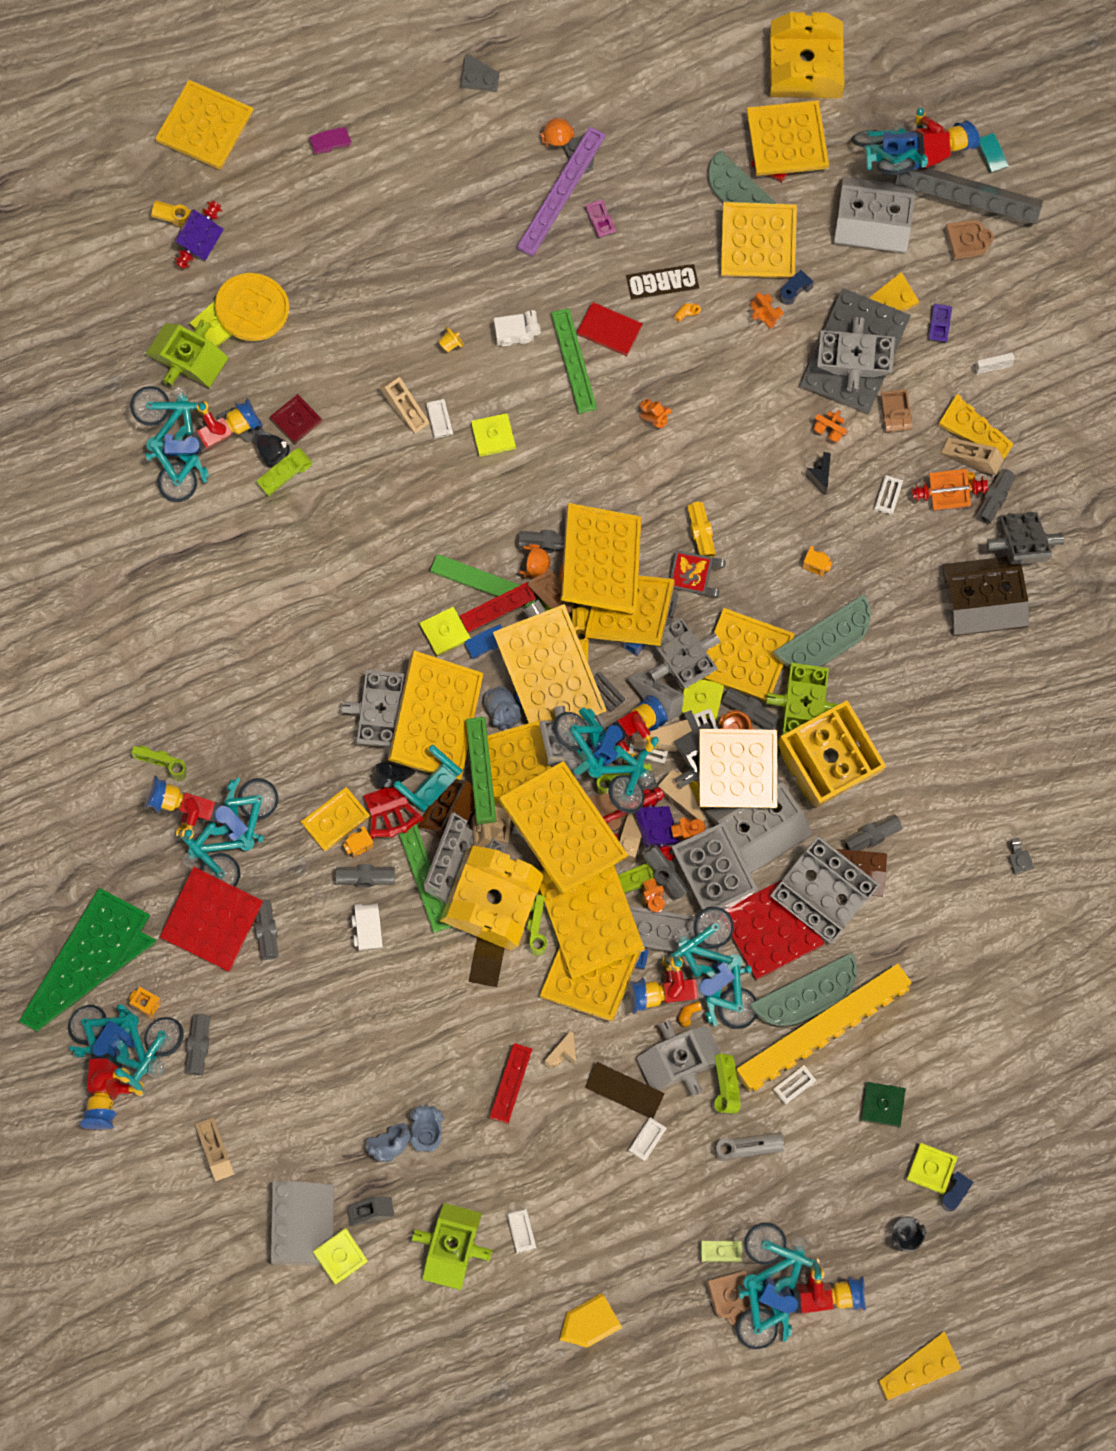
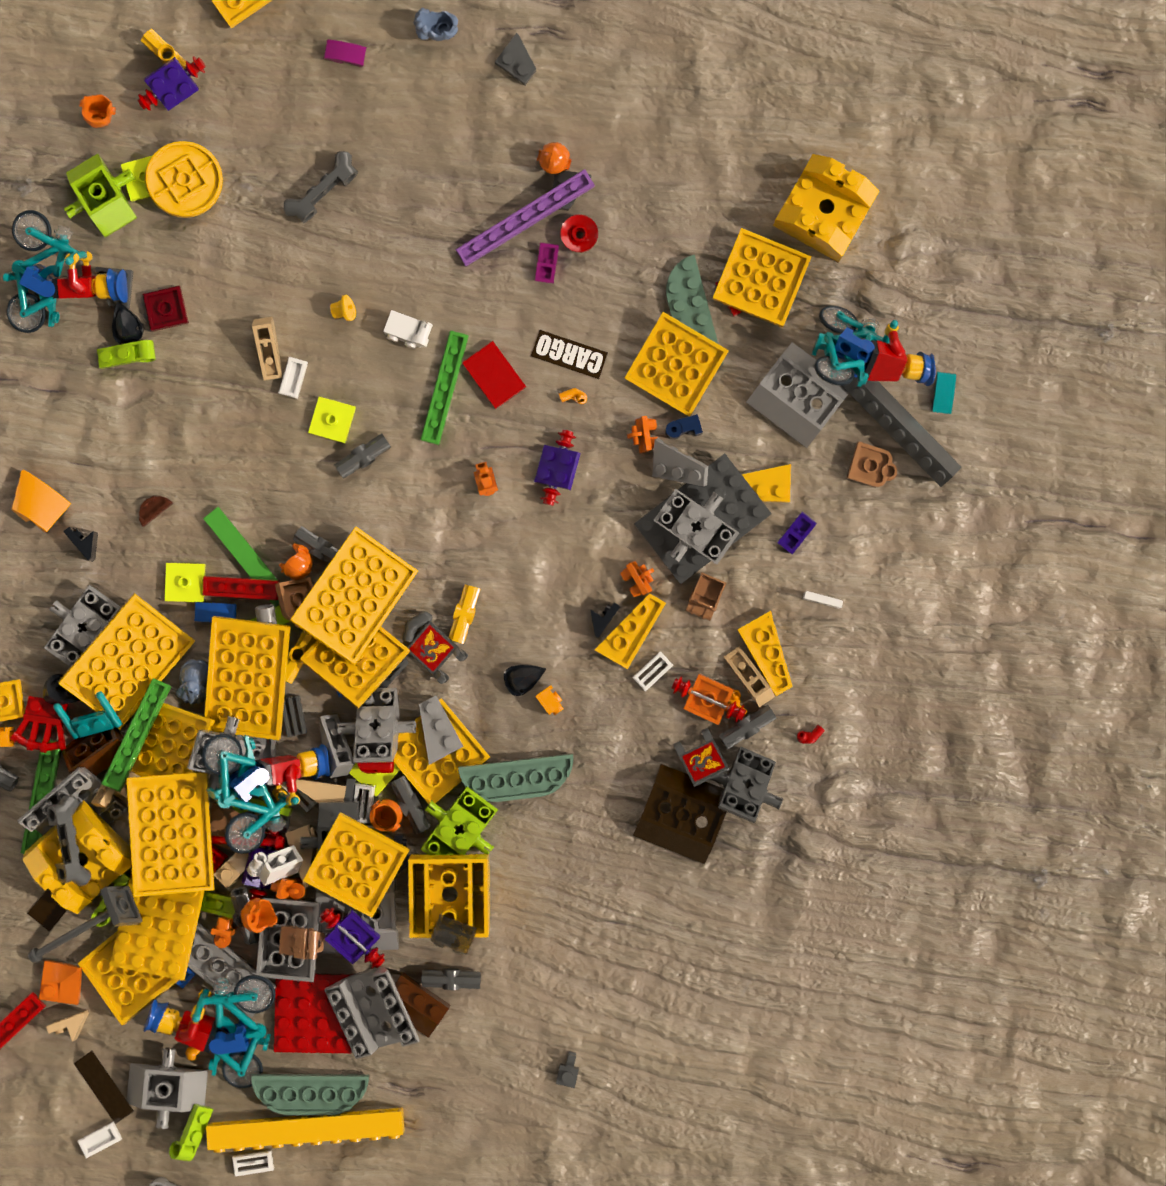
camera: 30 degrees right, 15 degrees up
(146, 288) = (97, 110): none -> orange cap
(278, 629) = (38, 502): none -> light orange slope
(340, 645) = (87, 545): none -> black slope
(371, 276) = (343, 173): none -> dark grey plate
(380, 585) = (152, 508): none -> copper tile
(396, 80) = (435, 25): none -> sand blue hair
(493, 893) = (70, 868): none -> dark grey plate
(534, 1021) = (61, 982): none -> orange plate
(537, 448) = (362, 456): none -> dark grey piece
(553, 915) = (120, 909): none -> dark grey tile
(617, 174) = (581, 224): none -> red dish
(664, 561) = (414, 624): none -> dark grey arm
(667, 810) = (275, 865): none -> white hinge
(678, 857) = (258, 915): none -> orange cap
(702, 687) = (377, 767): none -> red arm
(709, 373) = (557, 467): none -> dark purple plate
(728, 857) = (300, 942): none -> medium nougat piece
(738, 633) = (438, 730): none -> light grey wing
(769, 834) = (352, 937): none -> dark purple plate
(782, 557) = (522, 677): none -> black piece
(806, 318) = (675, 466): none -> light grey wing
(851, 478) = (630, 634): none -> yellow wing
(857, 773) = (453, 935): none -> clear smoke slope
(976, 539) = (703, 761): none -> flag
(1053, 478) = (810, 737): none -> red arm

